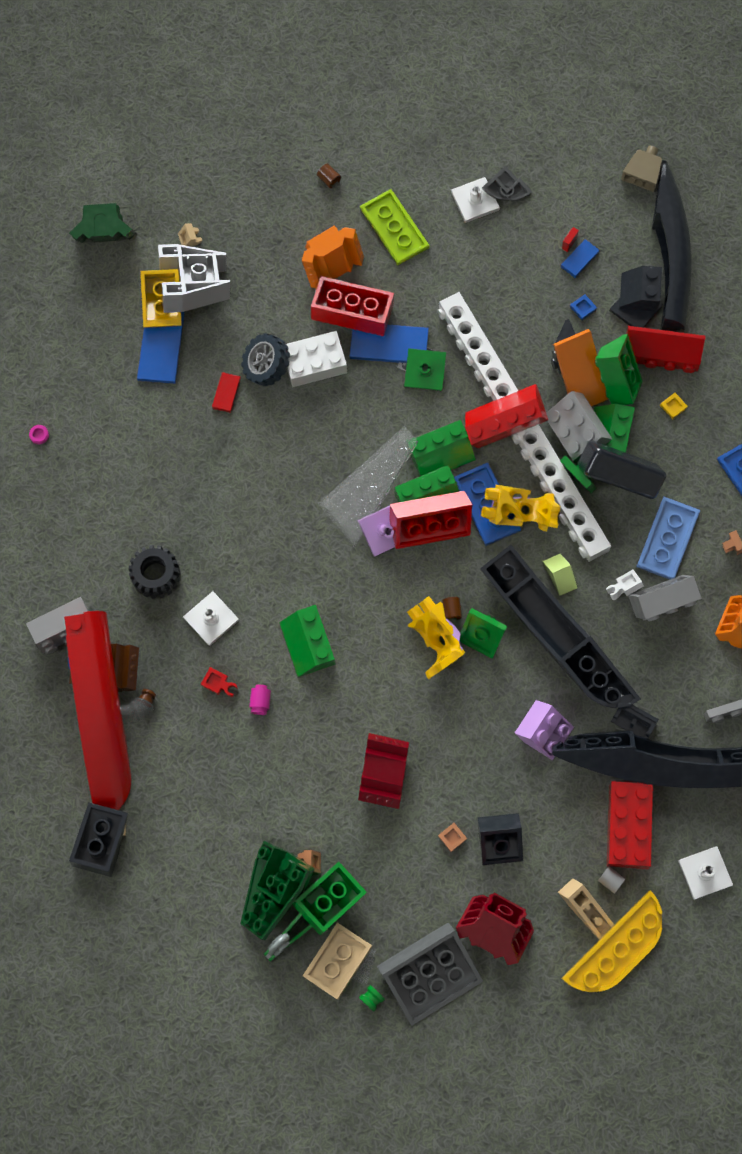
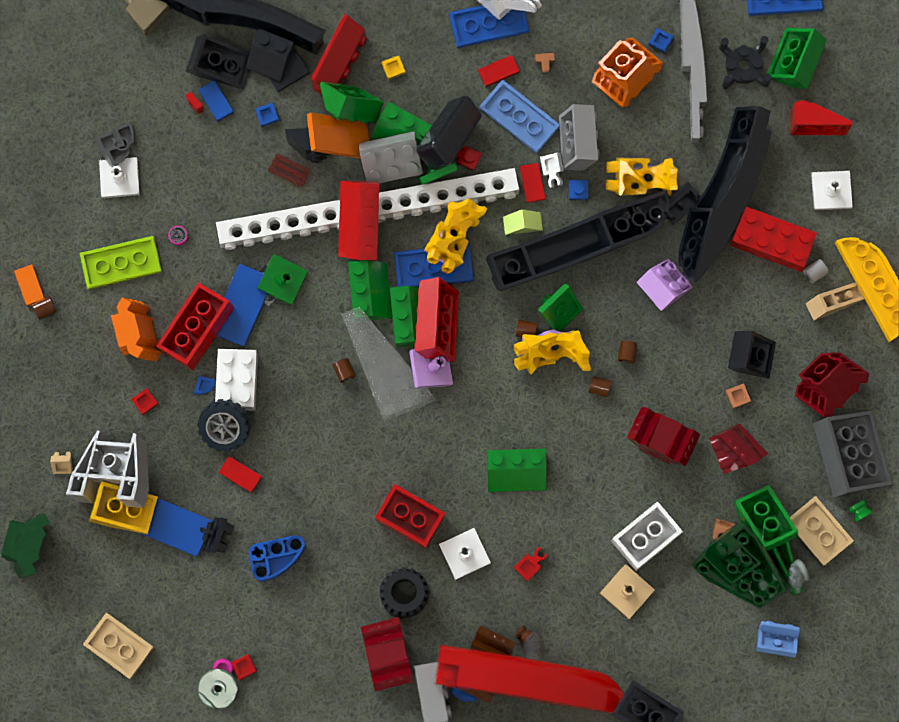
camera: 75 degrees left, 5 degrees up
(11, 431) = (215, 698): none -> plate
(34, 337) = (118, 646): none -> tan plate
(45, 452) = (243, 667): none -> red tile
(90, 573) = (386, 654): none -> dark red slope
(149, 446) = (275, 563): none -> blue beam
(153, 388) = (213, 535): none -> black hips
(212, 949) = (777, 638): none -> medium blue bracket
(219, 785) = (627, 591): none -> tan tile
(230, 554) = (410, 516): none -> red brick
(260, 700) = (559, 530): dark pink brick -> none
(269, 288) = (144, 401): none -> red tile
(278, 785) = (646, 536): none -> white brick
(300, 333) = (204, 385): none -> blue tile
(347, 157) = (29, 285): none -> orange tile
(355, 452) = (344, 370): none -> reddish brown beam
(394, 848) = (736, 448): none -> dark red slope
(417, 696) = (599, 386): none -> reddish brown beam
(437, 267) = (178, 235): none -> tile
(462, 713) = (627, 351): none -> reddish brown beam
(538, 329) = (275, 163): none -> clear red tile
(604, 570) = (532, 183): none -> red tile
(608, 501) = (468, 158): none -> red plate
(613, 617) = (578, 189): none -> blue plate
(617, 247) = (218, 62): none -> black slope
(643, 658) = (663, 176): none -> yellow hips
(708, 504) = (498, 70): none -> red tile

